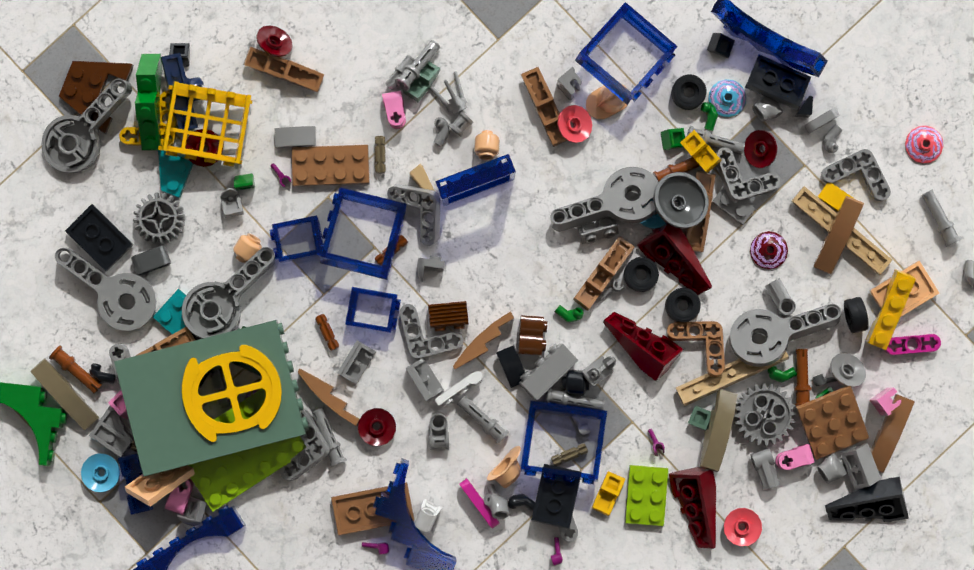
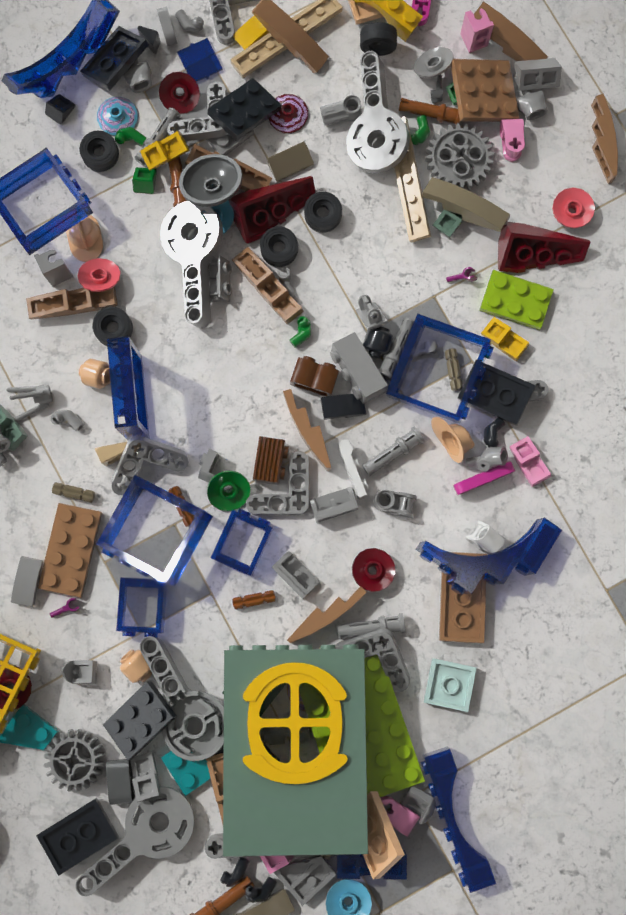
camera: 70 degrees left, 5 degrees down
(90, 399) = (260, 894): none -> black arm
(160, 280) = (145, 777): none -> light grey slope
(203, 263) = (139, 720): none -> black plate
(244, 182) = (61, 651): green slope -> none
(296, 514) = (449, 685): none -> light aqua plate
(383, 548) = (507, 597): magenta hand -> none
(394, 106) = (25, 463): bright pink piece -> none
(409, 291) = (228, 499): none -> green dish
(462, 120) = (64, 396): light grey bush -> none
(504, 539) = (529, 461): none -> bright pink slope
(521, 148) = (108, 315): none -> black tyre
(557, 558) = (563, 409): magenta hand -> none
(649, 352) = (364, 257): dark red wedge -> none
(709, 339) = (366, 193): medium nougat beam -> none
(722, 264) = (290, 161): none -> dark tan slope
(757, 211) = (244, 109): none -> black plate
(764, 464) = (510, 170): light grey piece -> none
(798, 158) = (200, 60): none -> clear blue piece
(808, 543) = (605, 144): none -> medium nougat slope
(879, 501) = (579, 60): black wedge -> none

